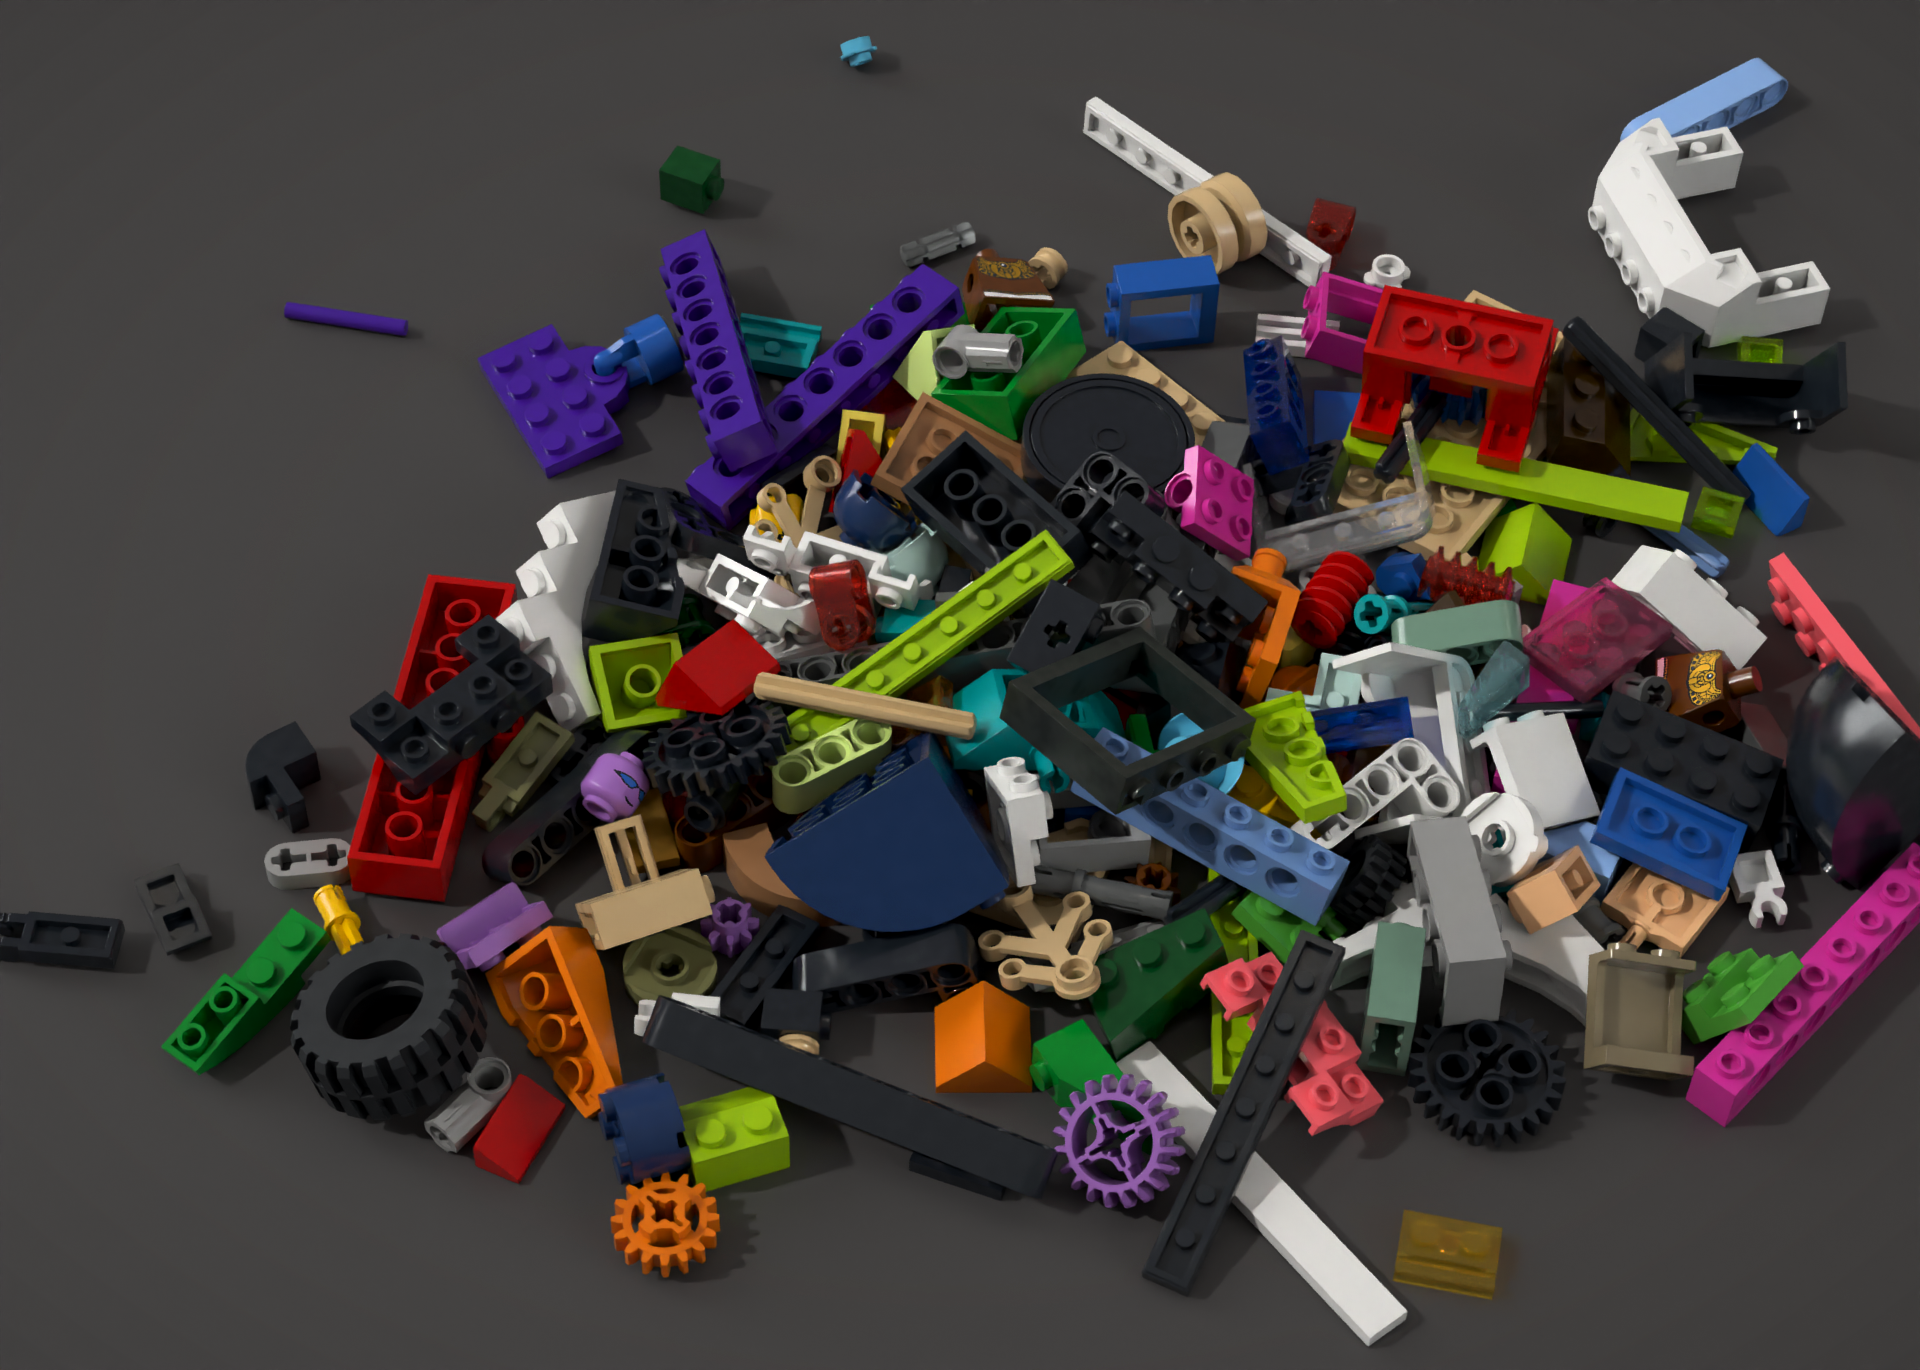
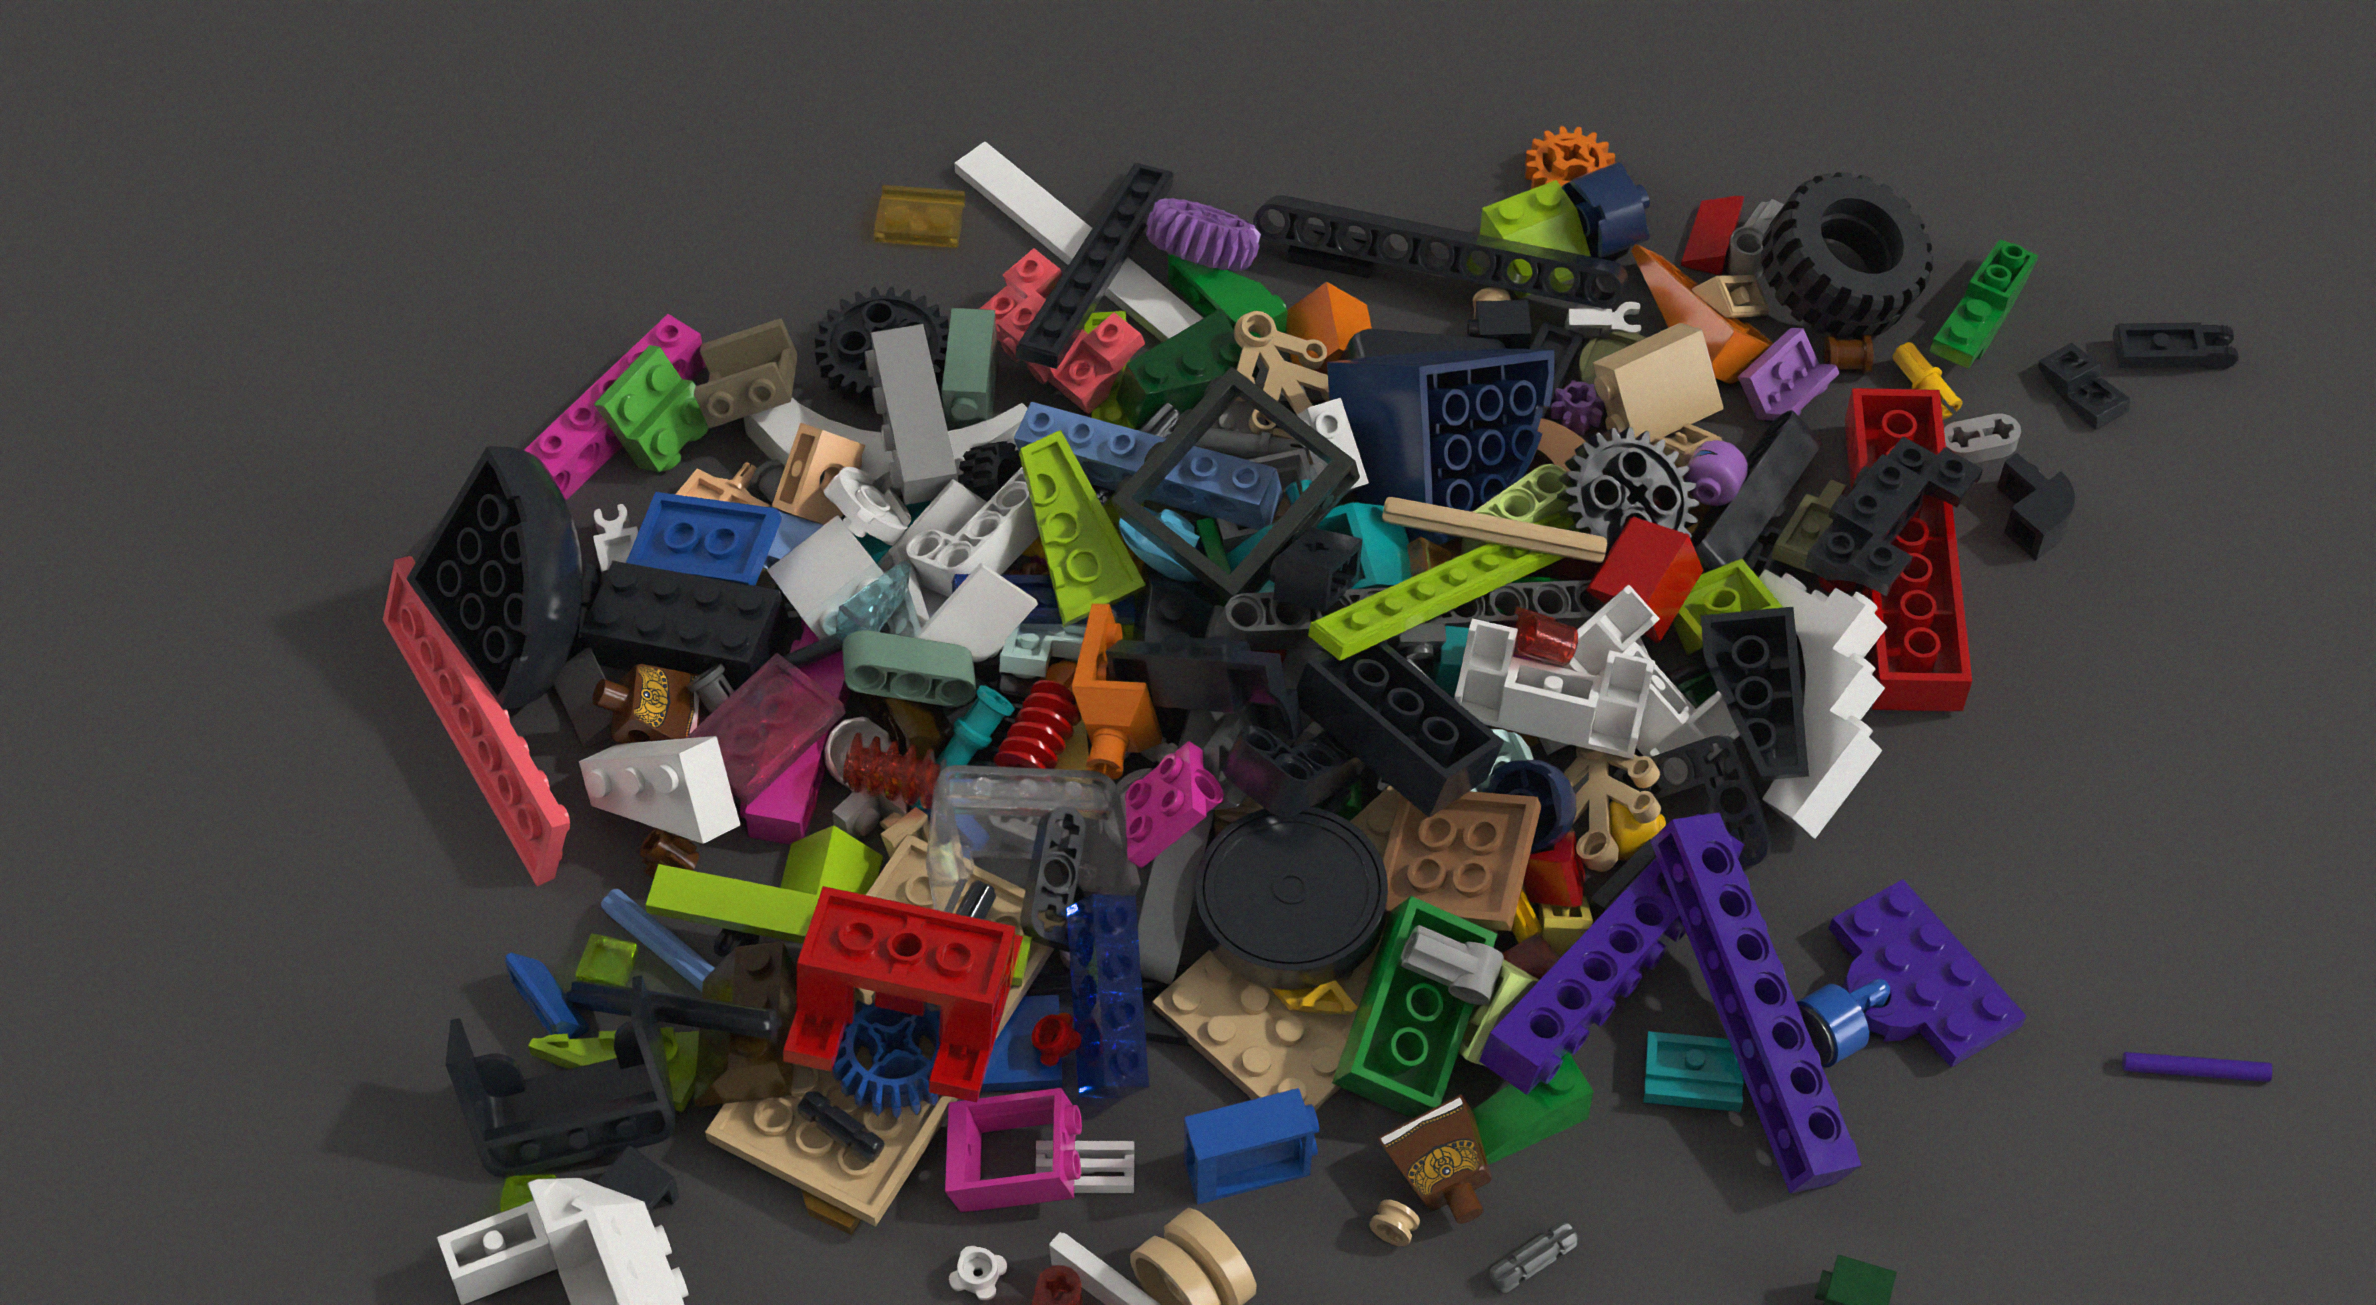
camera: 175 degrees right, 5 degrees up
(529, 1021) = (1734, 296): none -> tan slope
(1321, 400) = (1055, 1037): none -> red plate

